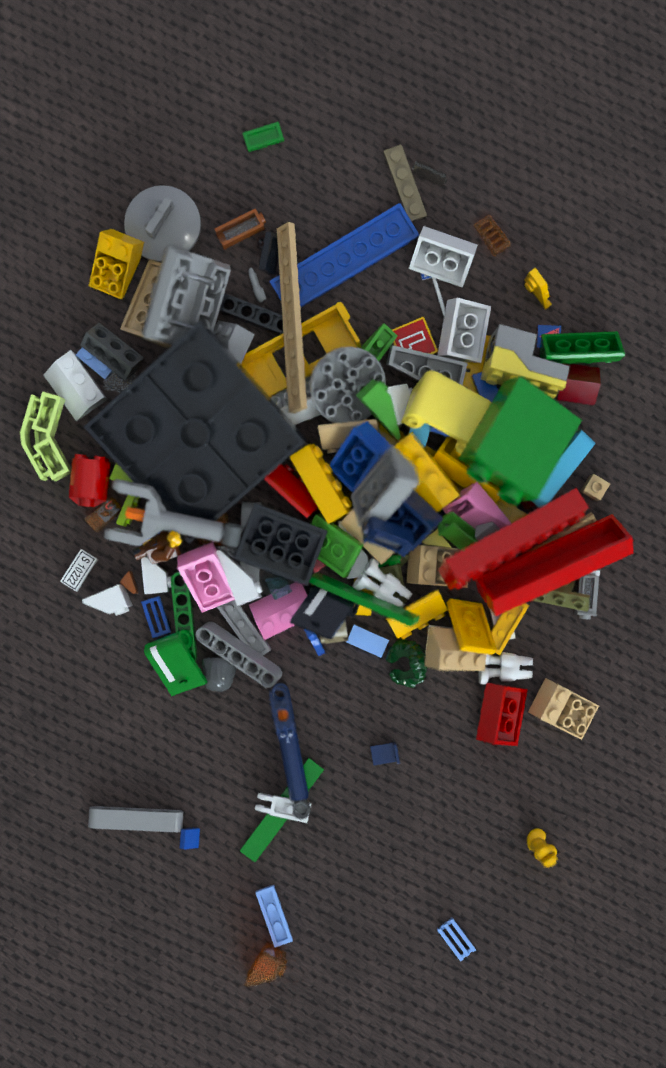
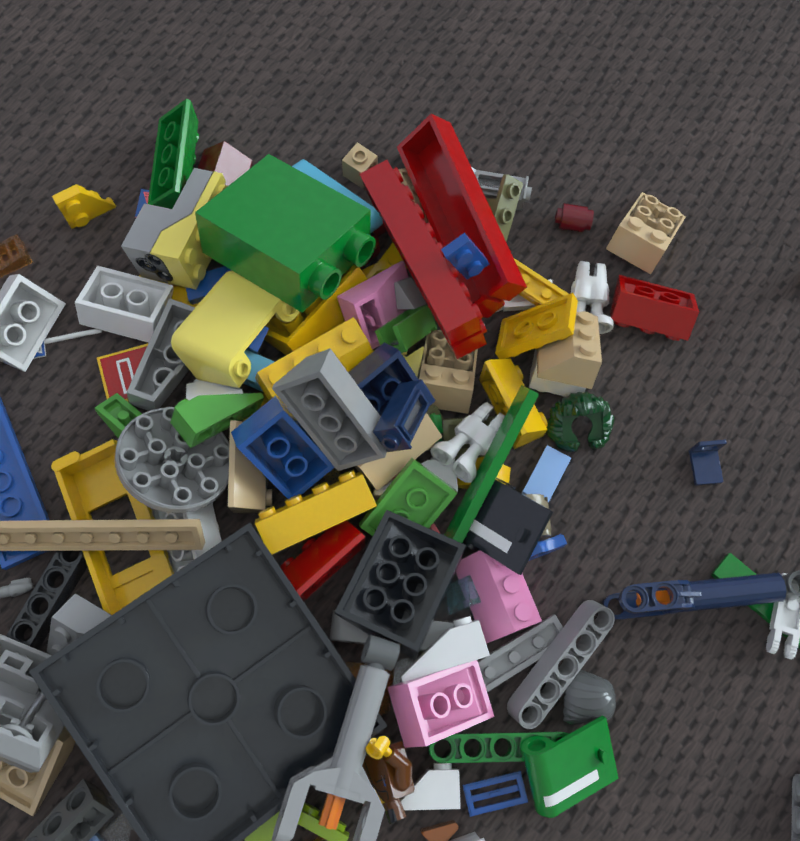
camera: 90 degrees left, 15 degrees down
(506, 570) = (465, 256): none -> blue plate
(568, 653) = (574, 217): none -> dark red brick

